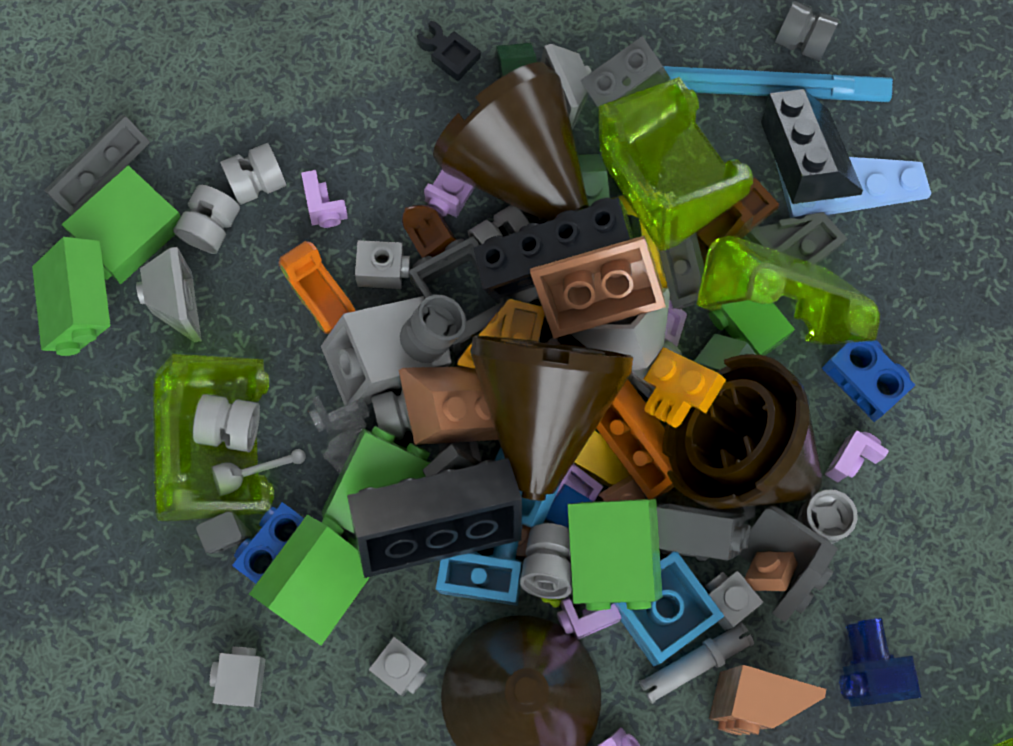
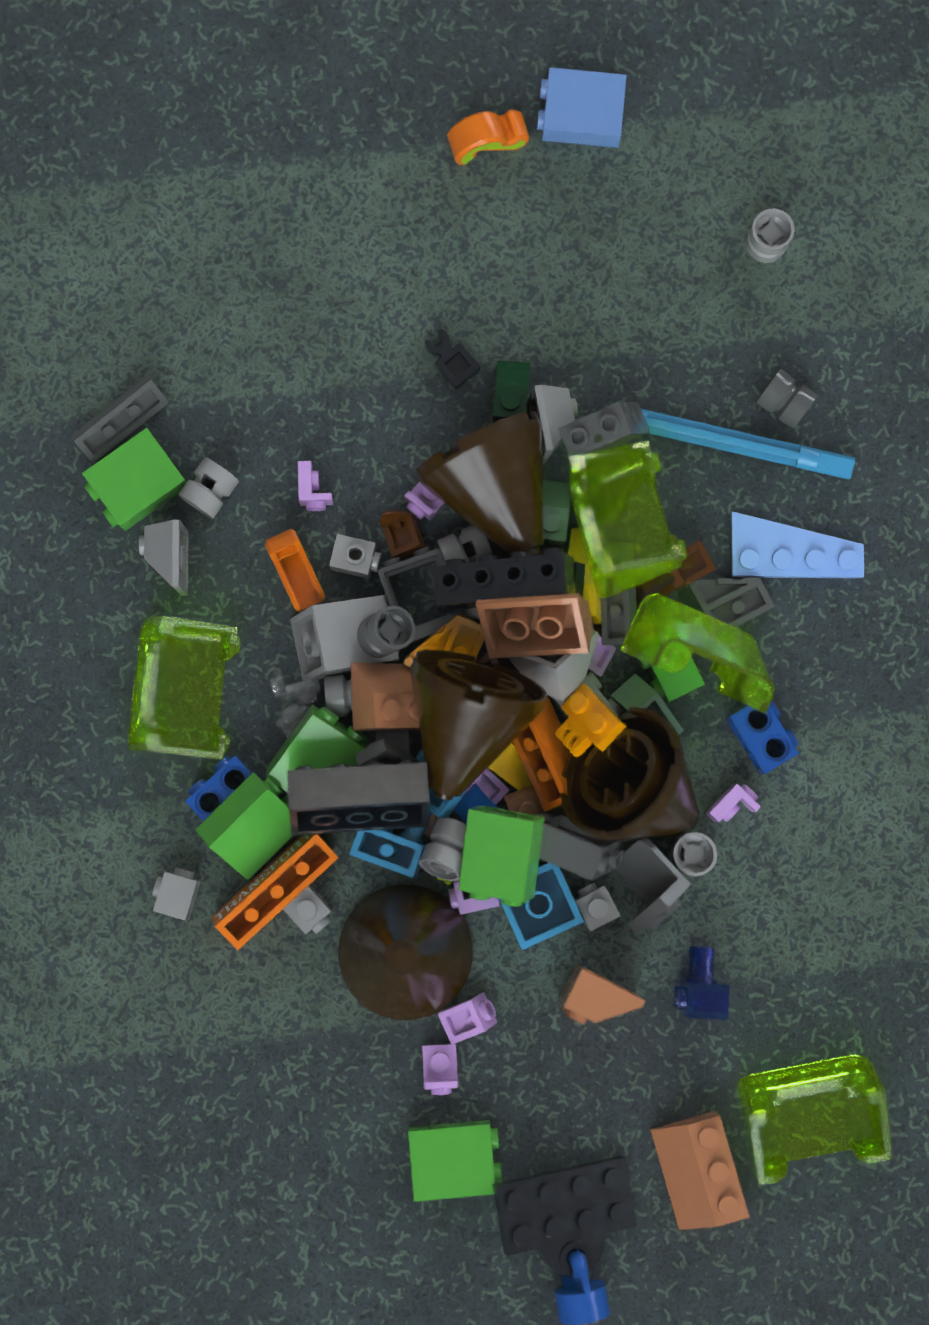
camera: 15 degrees right, 10 degrees up
(70, 295) = (82, 542): bright green brick -> none
(222, 532) = (181, 771): dark grey slope -> none
(224, 422) = (198, 677): light grey wheel -> none
(230, 477) = (194, 723): light grey hinge -> none
(253, 173) = (244, 448): light grey wheel -> none
(353, 648) = (273, 889): none -> orange brick
(710, 654) = (556, 952): light grey pin -> none
(771, 571) = (634, 890): nougat plate -> none
(808, 148) = (761, 516): black slope -> none

